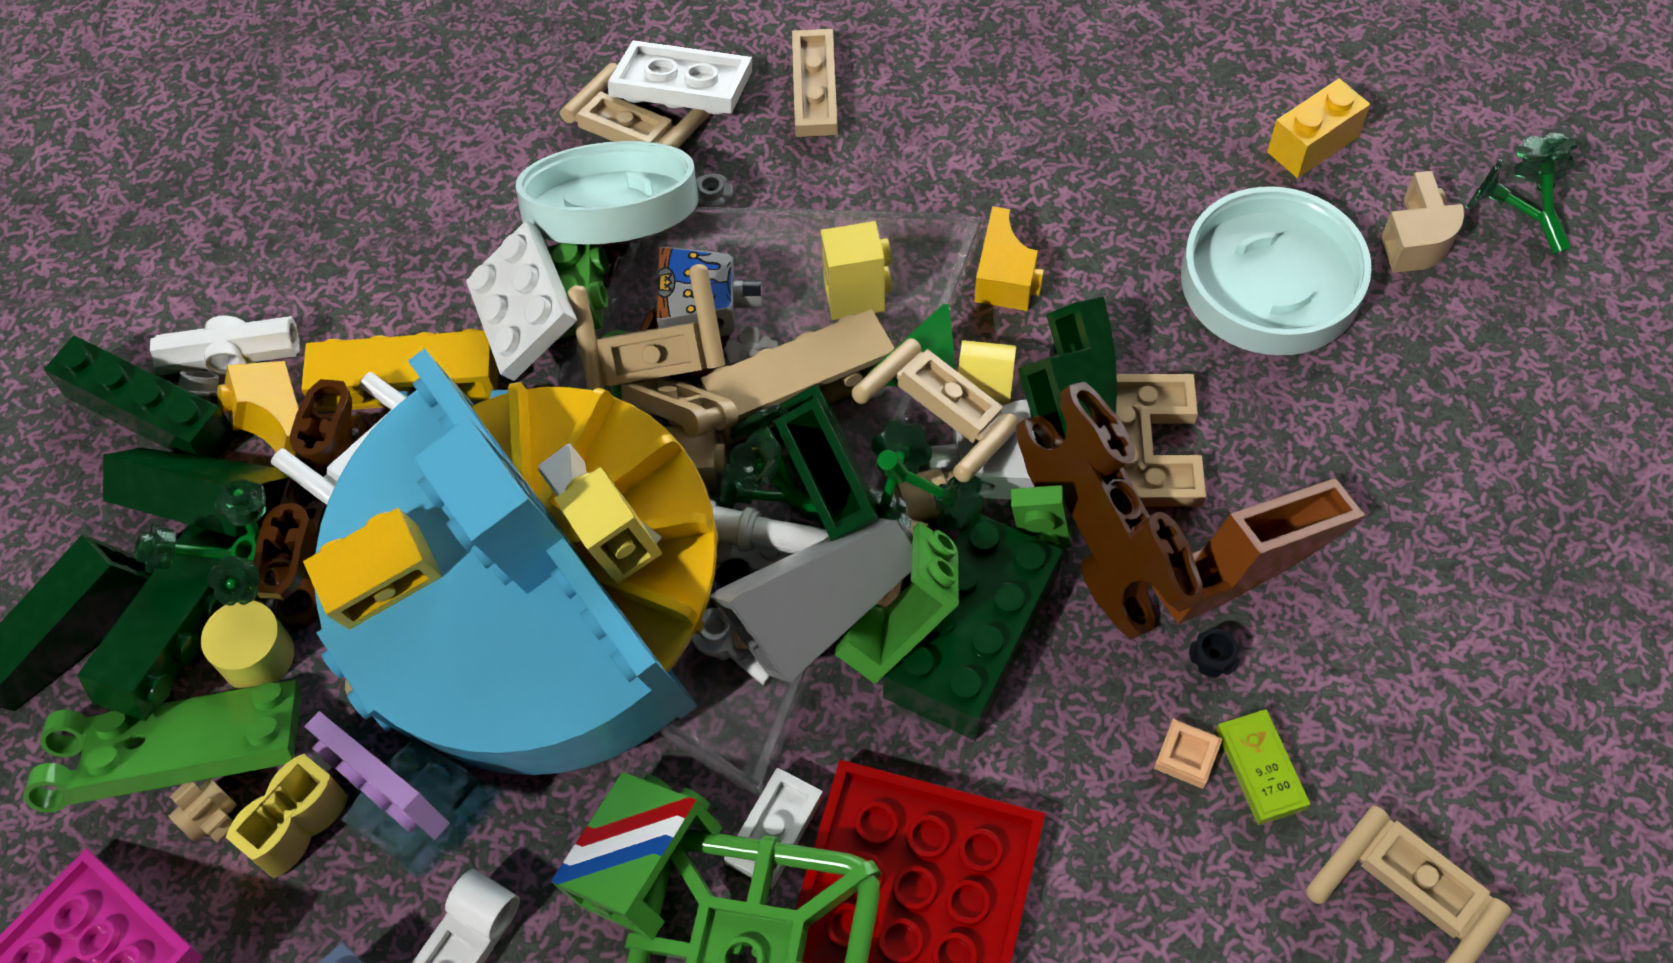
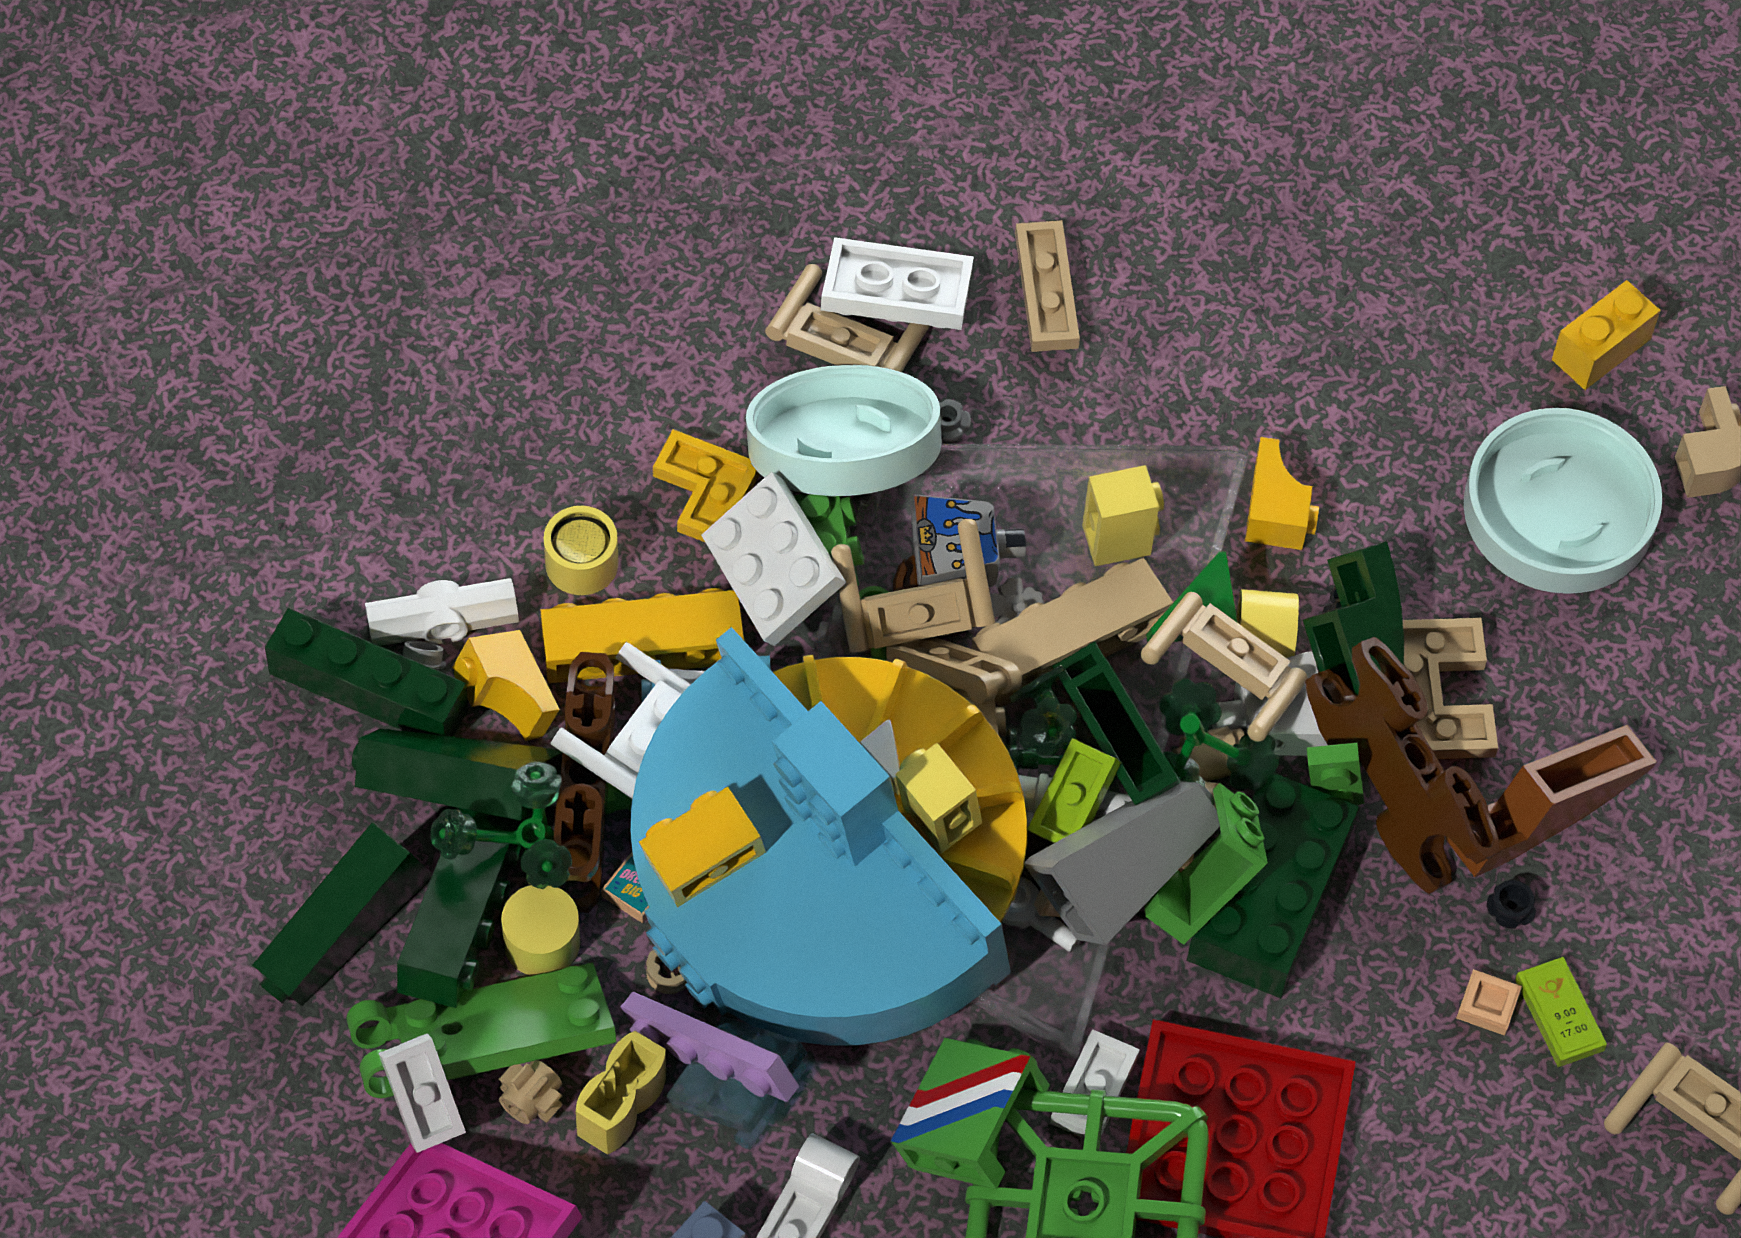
camera: 10 degrees left, 0 degrees up
(75, 811) = (422, 1092): none -> white plate
(360, 293) = (581, 550): none -> light yellow piece
(481, 227) = (711, 474): none -> yellow plate
(772, 525) = (1074, 792): none -> lime plate

